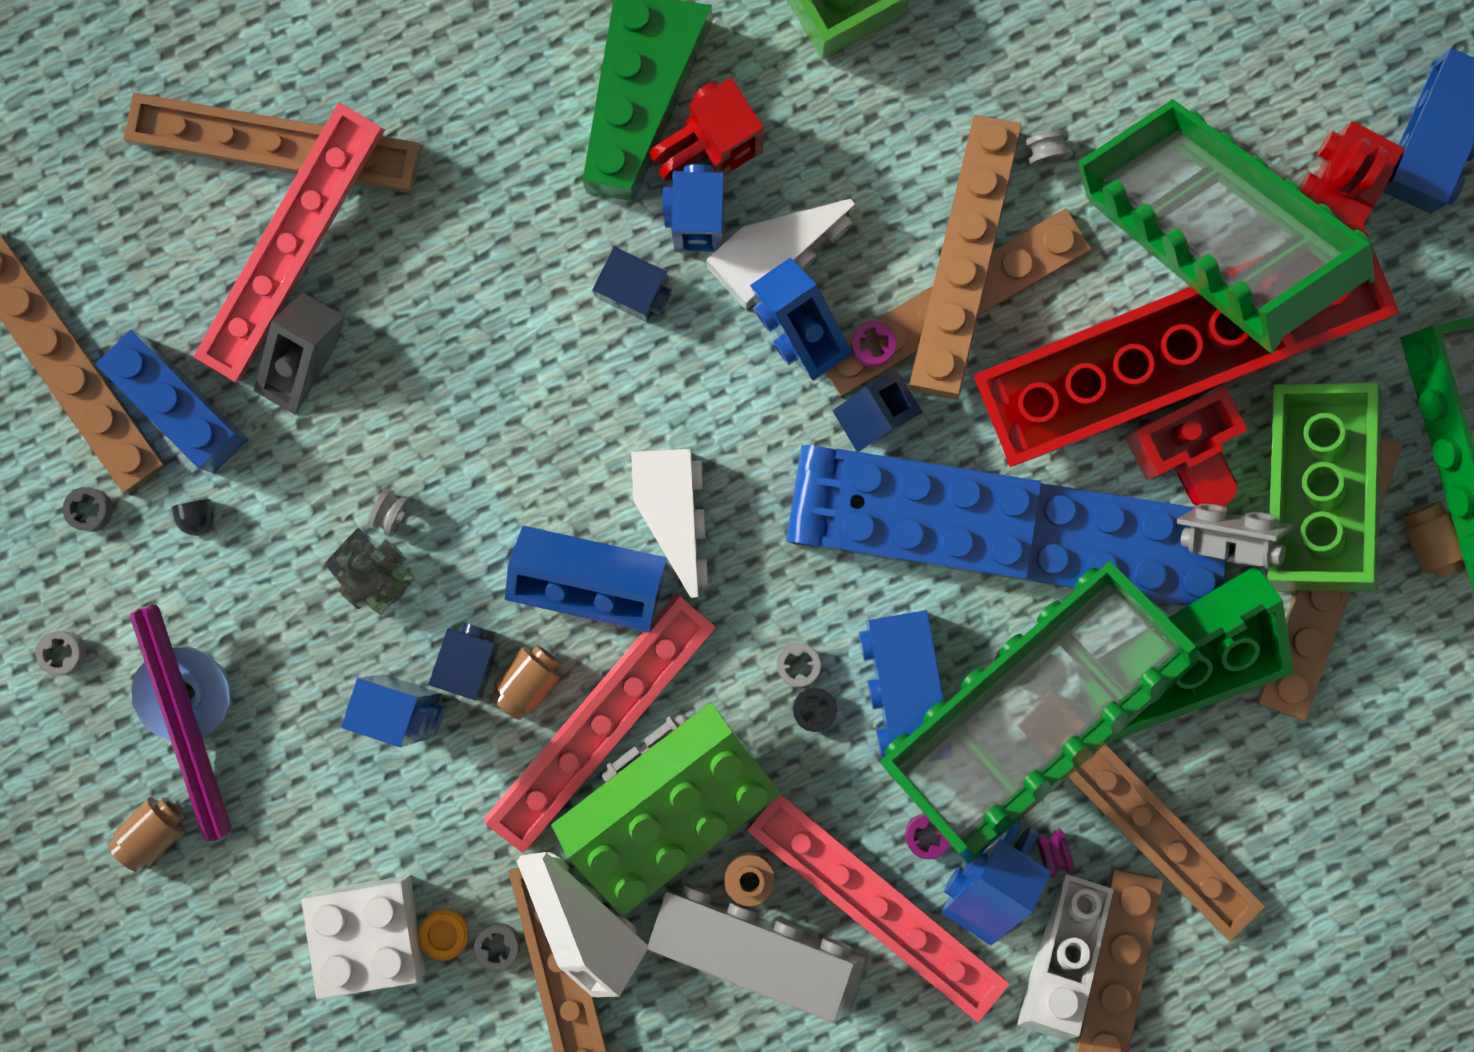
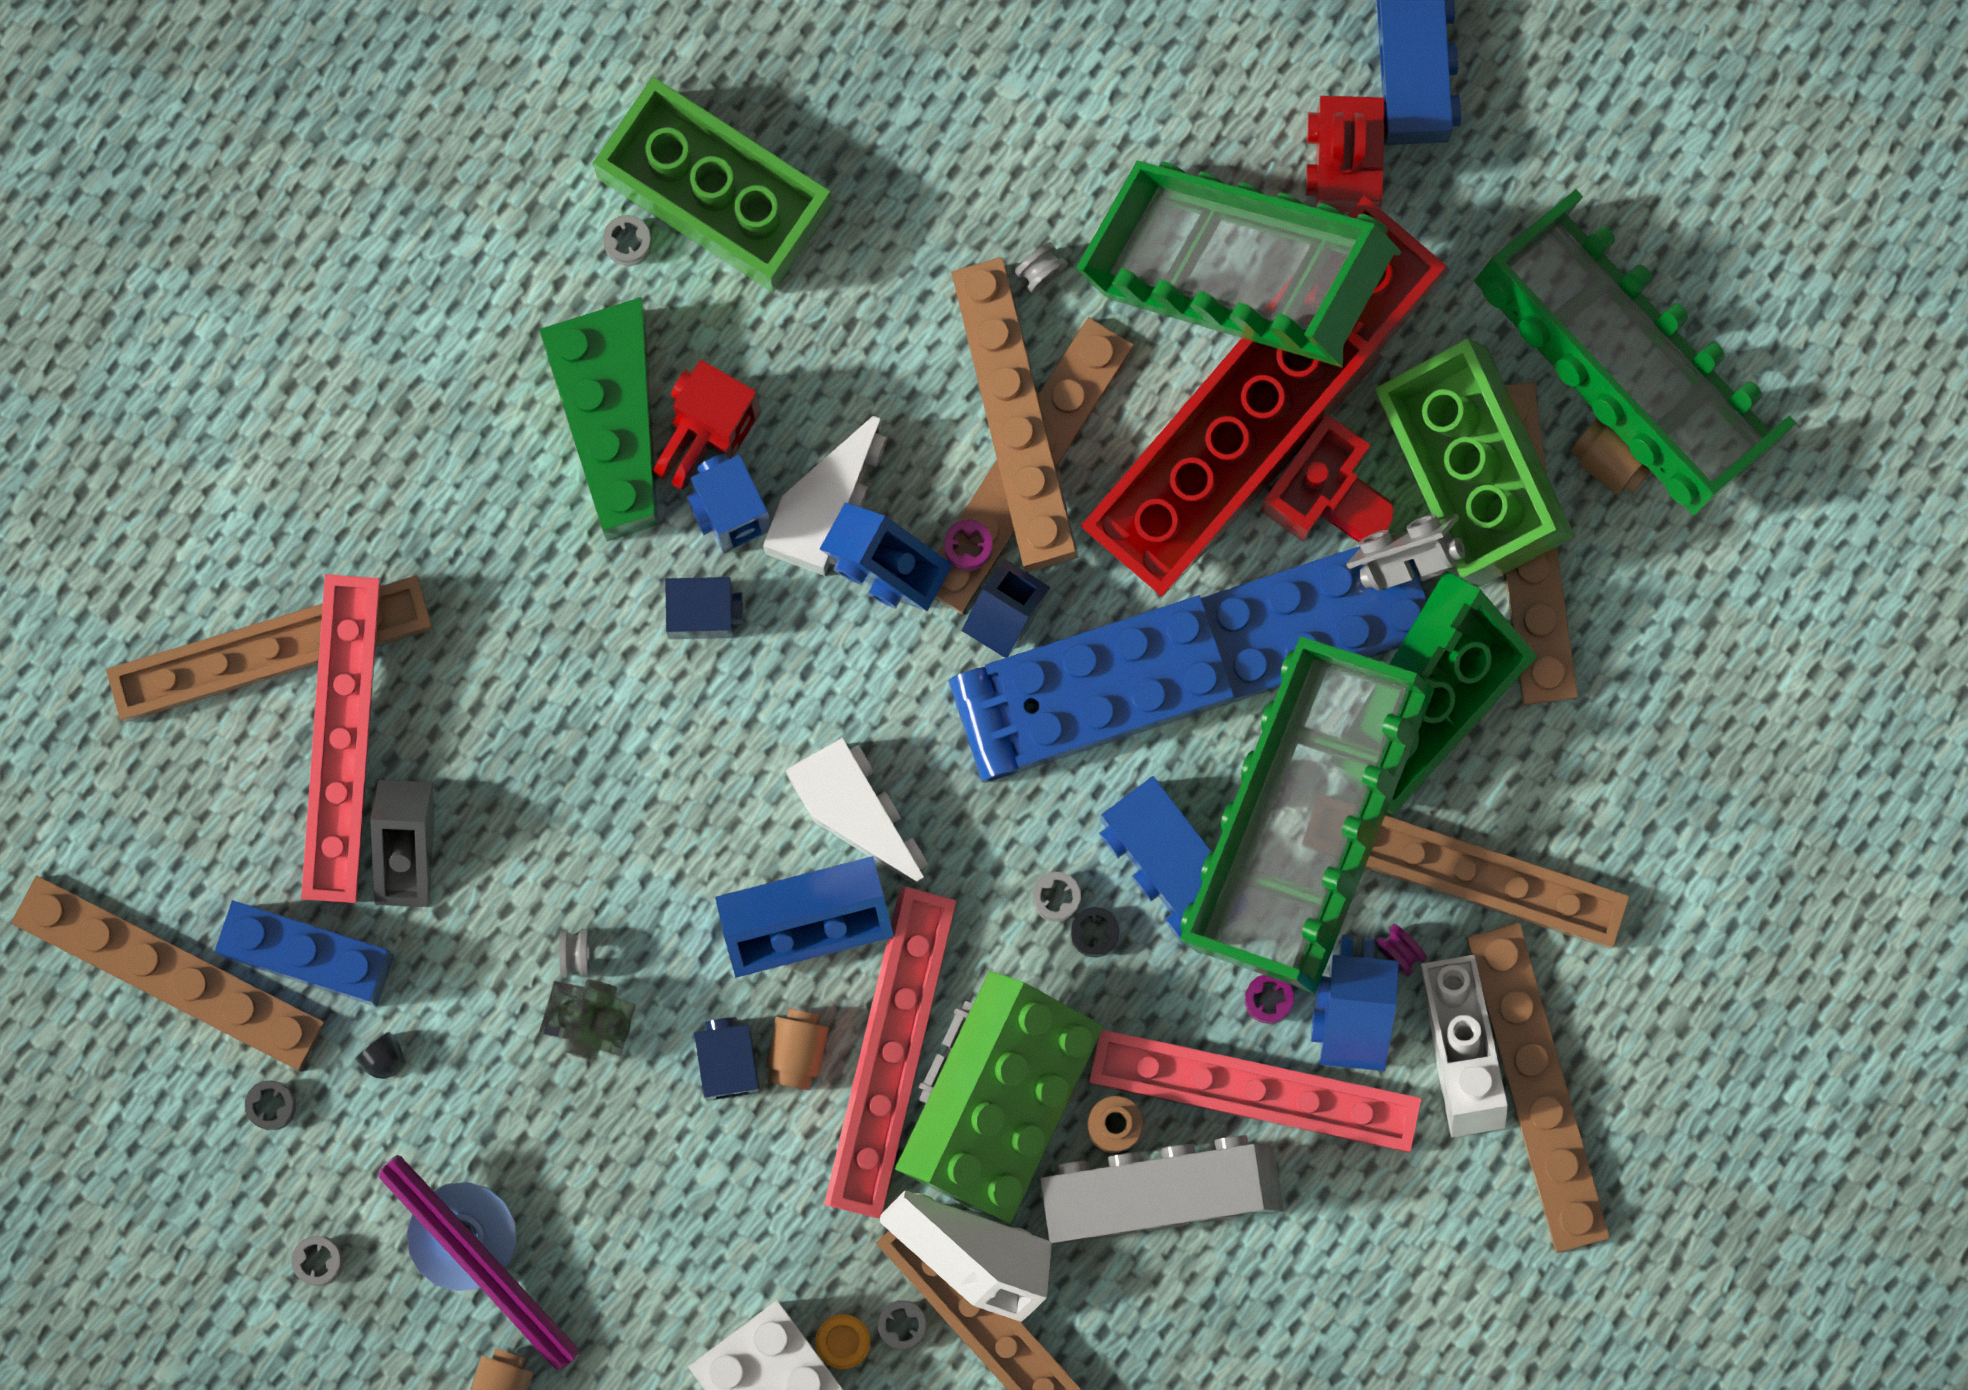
camera: 30 degrees left, 5 degrees down
(393, 710) = (687, 1133): blue brick -> none

